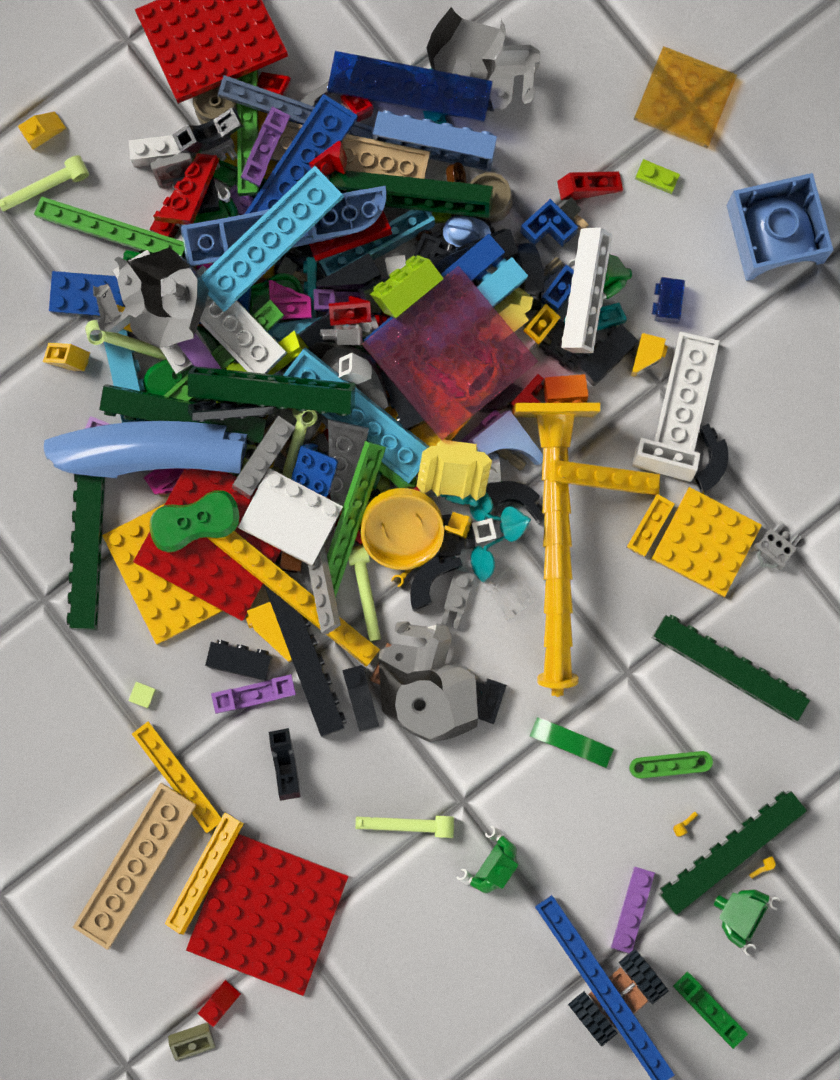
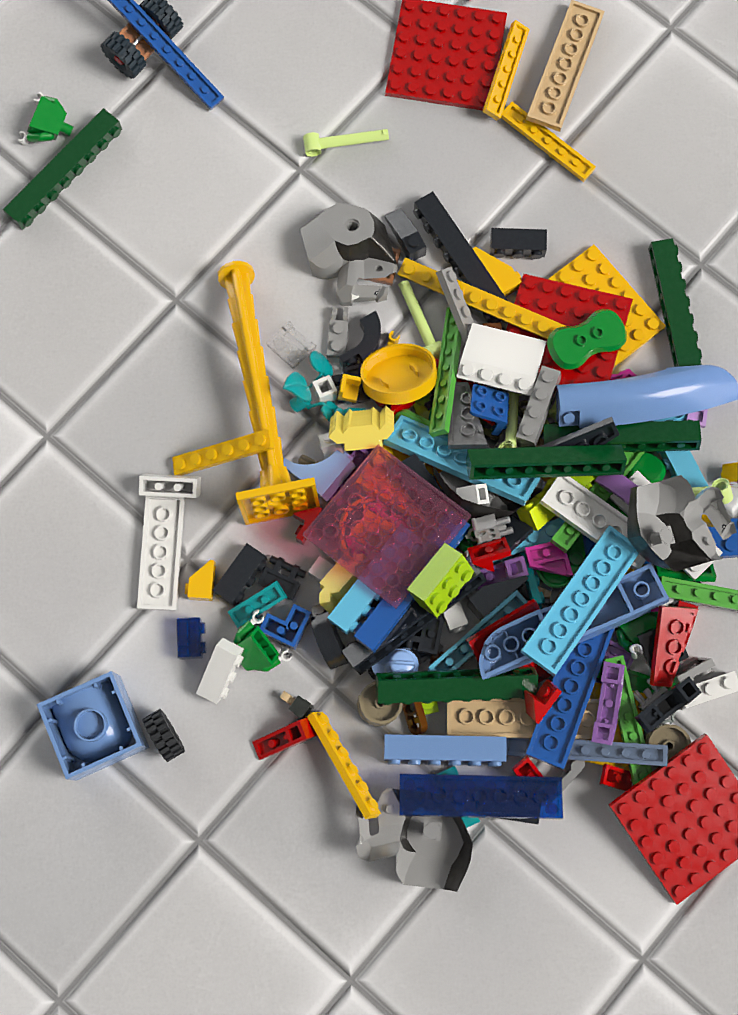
camera: 170 degrees right, 5 degrees down
(142, 695) = (595, 202): yellowish green tile -> none
(253, 694) = (502, 218): medium lavender slope -> none
(284, 764) = (457, 165): black arch -> none
(490, 699) = (292, 253): black plate -> none
(496, 868) = (261, 117): green torso -> none
(516, 492) = (302, 432): black arch -> none
(536, 143) = (343, 764): none -> yellow plate
(541, 323) = (308, 585): yellow slope -> none
(549, 220) = (318, 692): blue brick -> none
(552, 268) = (308, 649): dark tan piece -> none
(566, 389) = (273, 531): orange brick -> none
(571, 742) = (216, 230): green slope -> none
(586, 290) = (268, 620): white brick -> none
(632, 910) = (141, 112): medium lavender plate -> none
(643, 256) = (220, 671): none -> white brick
(650, 525) = (175, 427): yellow plate -> none
(657, 176) = (221, 762): lime plate -> none
(671, 764) = (126, 229): bright green plate -> none
(680, 828) = (111, 182): yellow hand -> none
(685, 97) = (205, 850): clear yellow plate -> none
(706, 542) = (122, 424): yellow plate -> none
(710, 205) = (163, 735): none -> black tyre
(710, 1010) = (63, 46): green slope -> none
(717, 461) = (122, 494): black arch -> none
(730, 668) = (85, 317): dark green brick -> none
(769, 864) = (31, 166): yellow hand -> none
(772, 553) = (59, 423): light grey piece -> none

